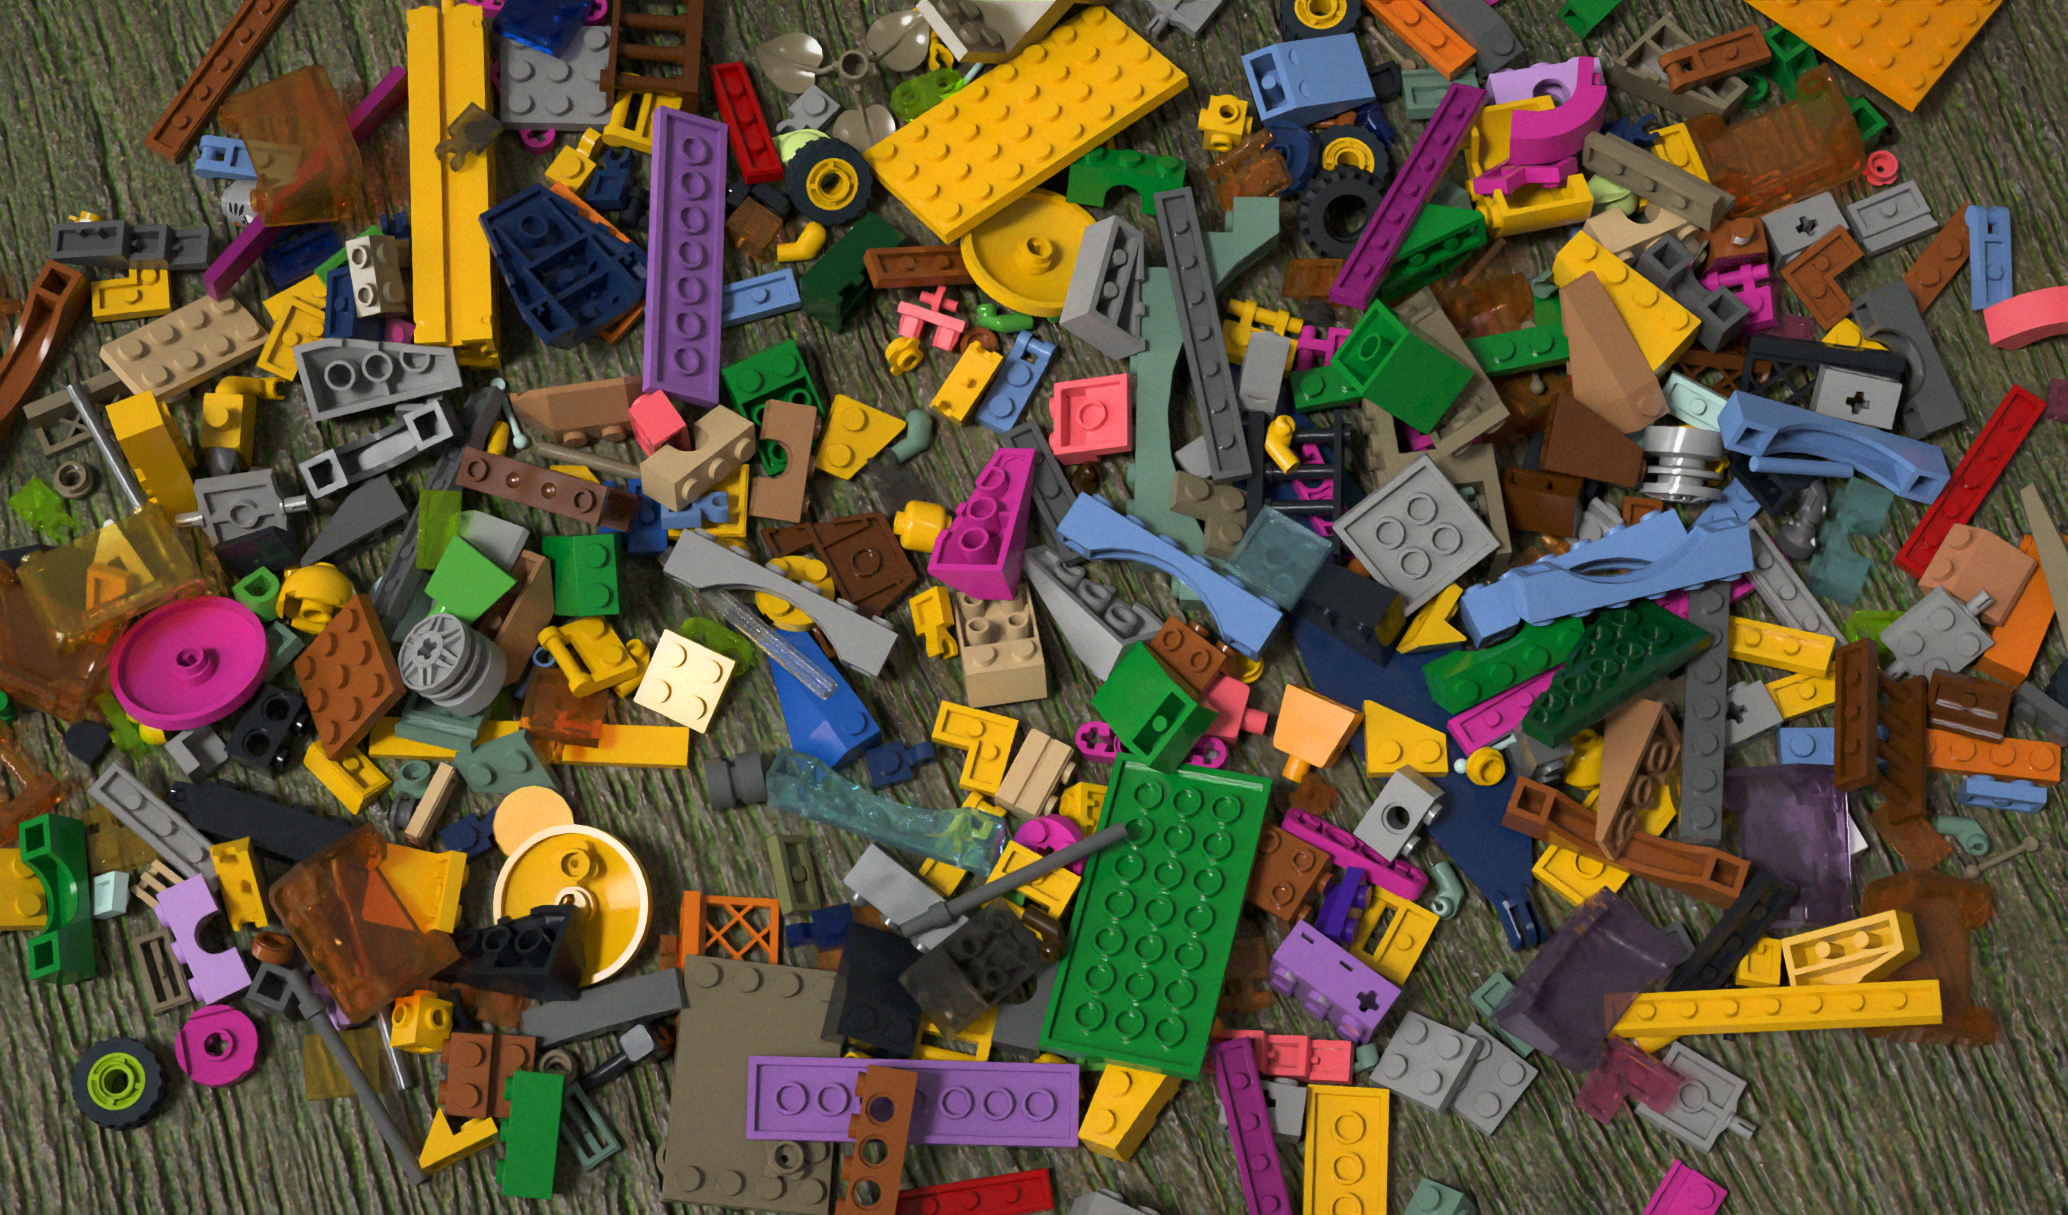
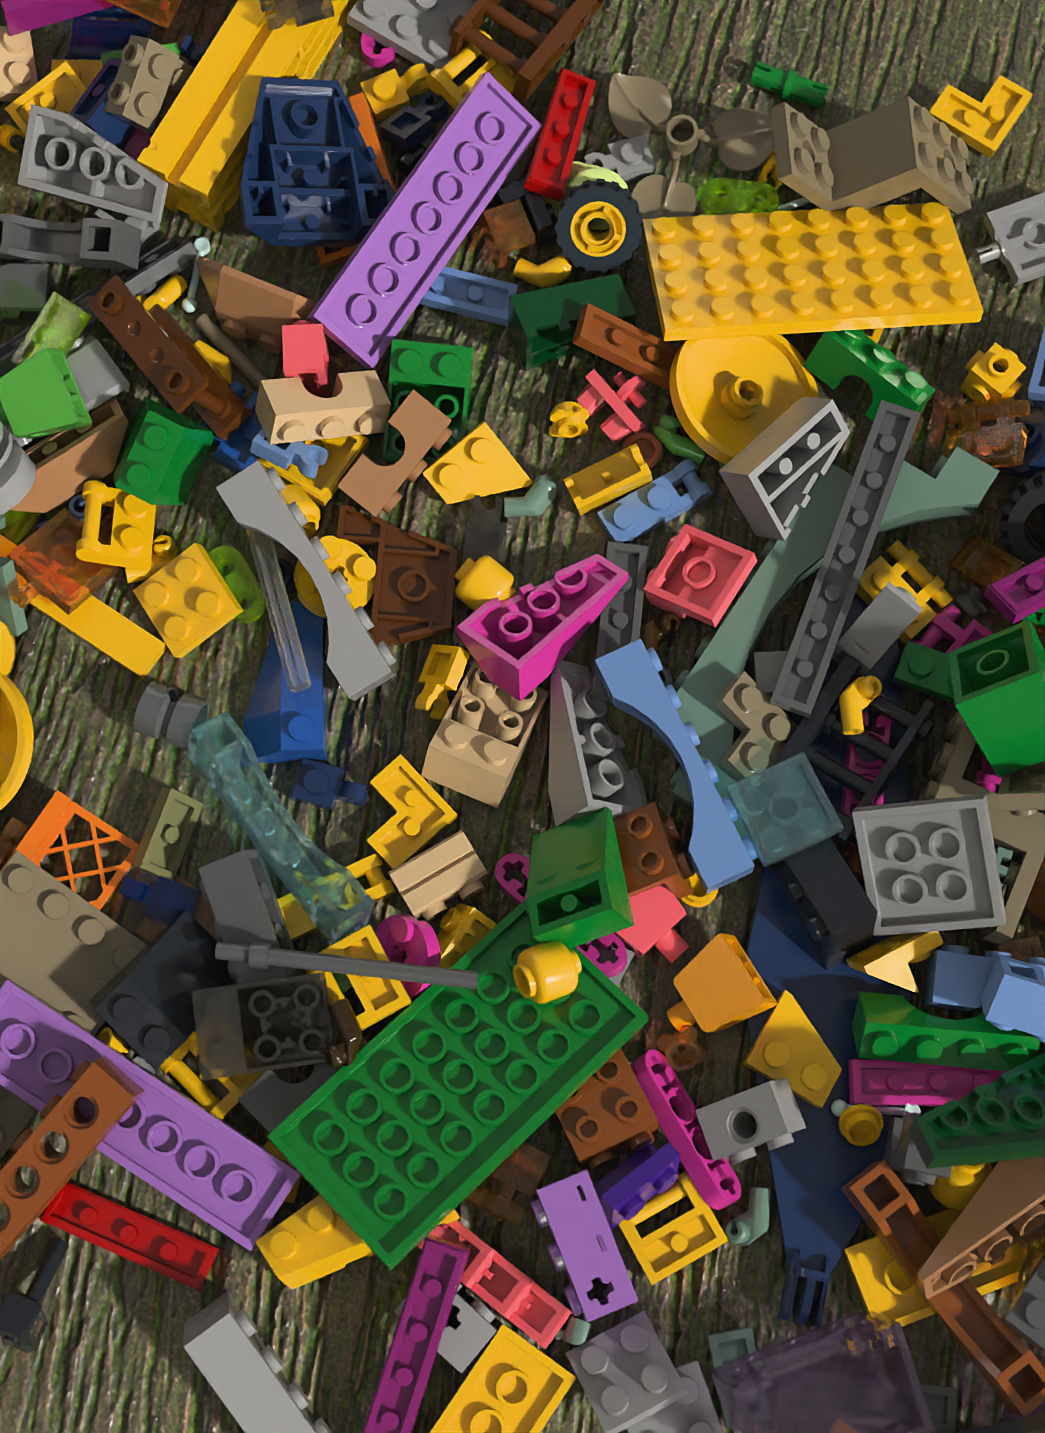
camera: 30 degrees right, 5 degrees up
(1173, 790) = (547, 971): none -> yellow head

